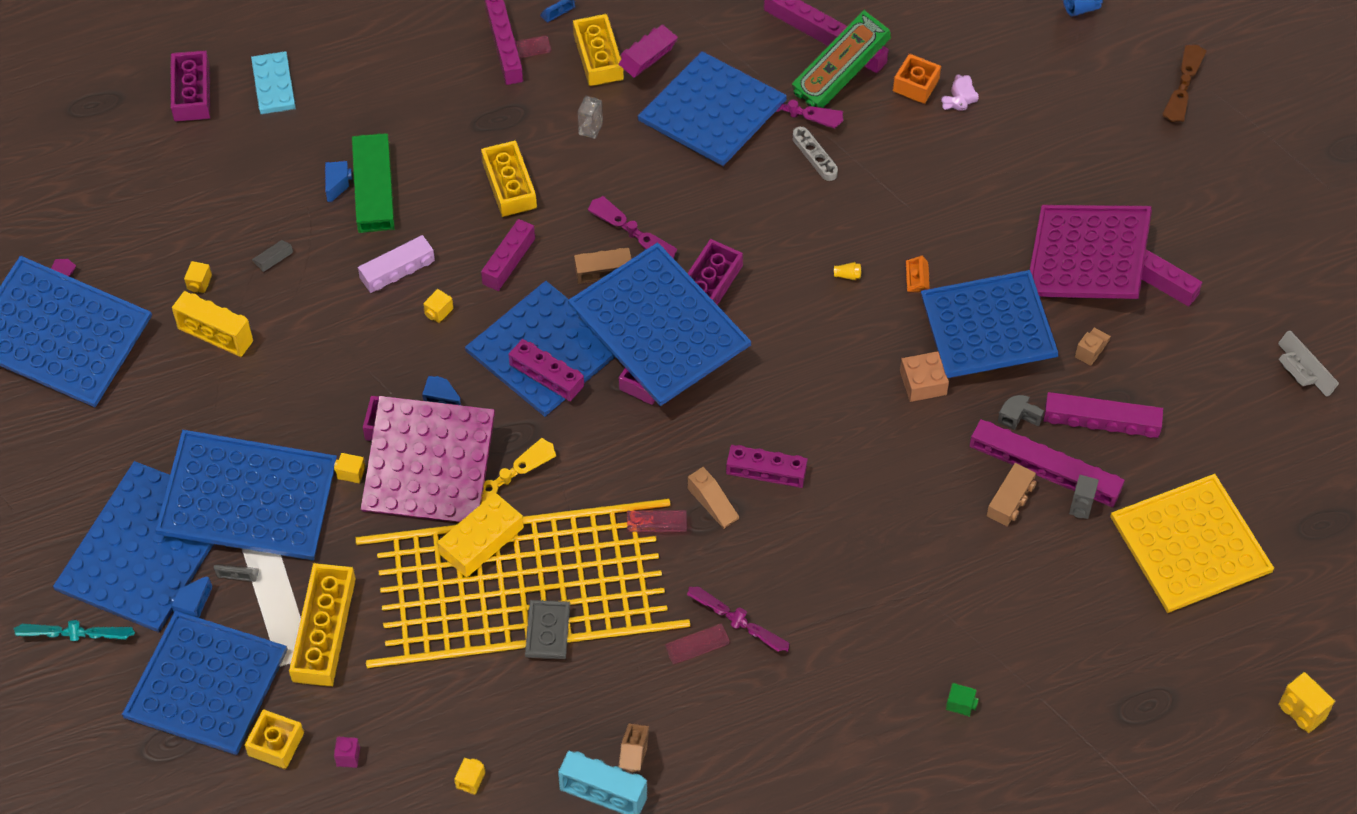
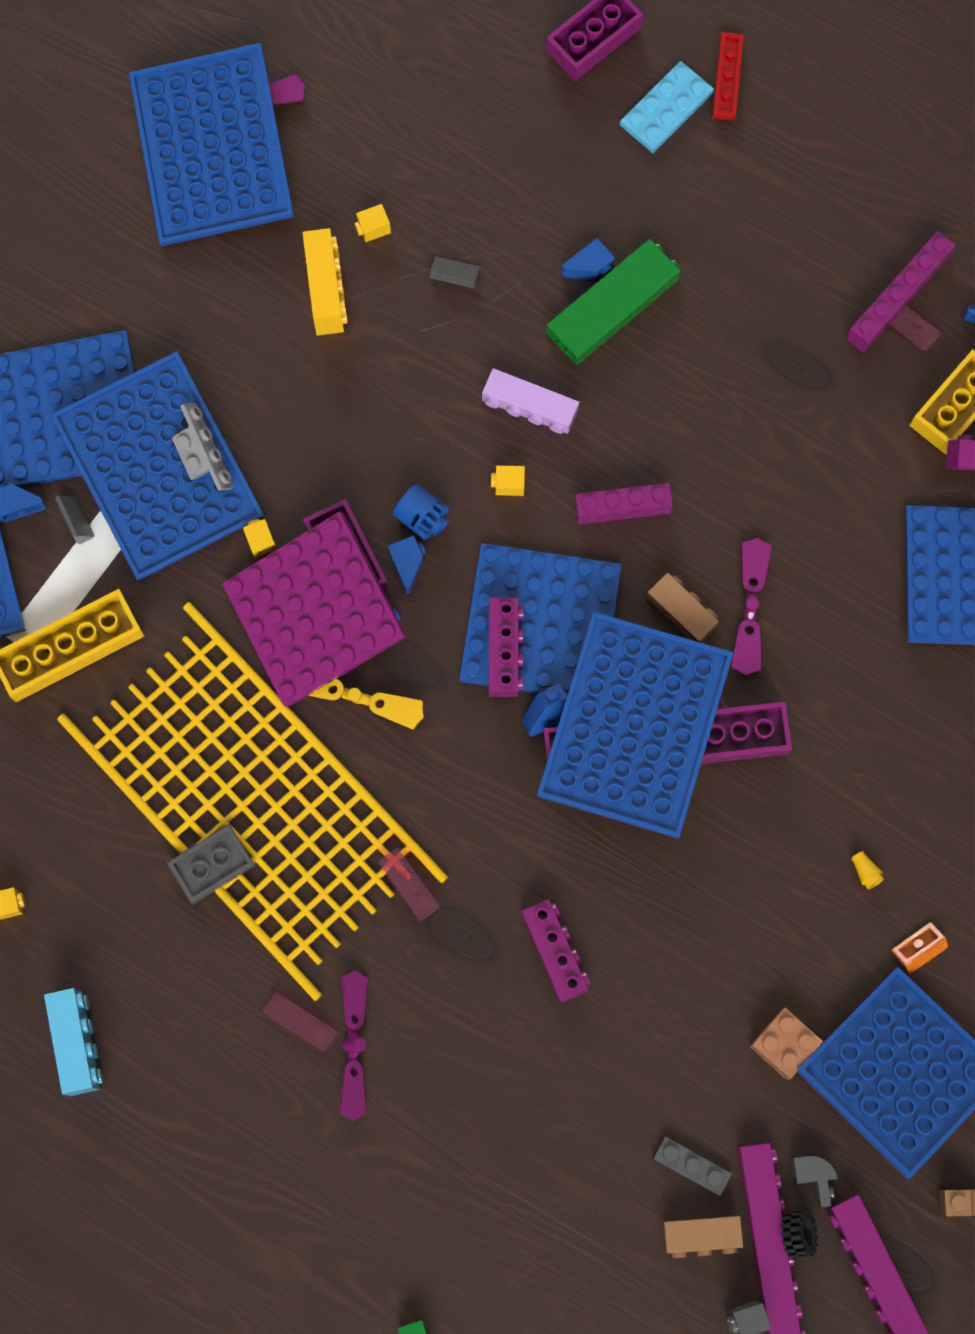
camera: 55 degrees right, 20 degrees up
(259, 460) = (199, 450): none -> light grey bracket
(285, 39) = (728, 76): none -> red plate
(417, 363) = (422, 512): none -> blue gear
(480, 534) = (266, 723): yellow brick -> none
(509, 178) = (717, 434): yellow brick -> none
(590, 117) = (860, 459): clear brick -> none
(606, 374) = (545, 710): none -> blue slope
(634, 747) = (126, 1046): medium nougat brick -> none
(712, 497) = (476, 922): medium nougat slope -> none
(963, 476) = (692, 1166): none -> dark grey plate
(1049, 438) = (799, 1234): none -> black tyre

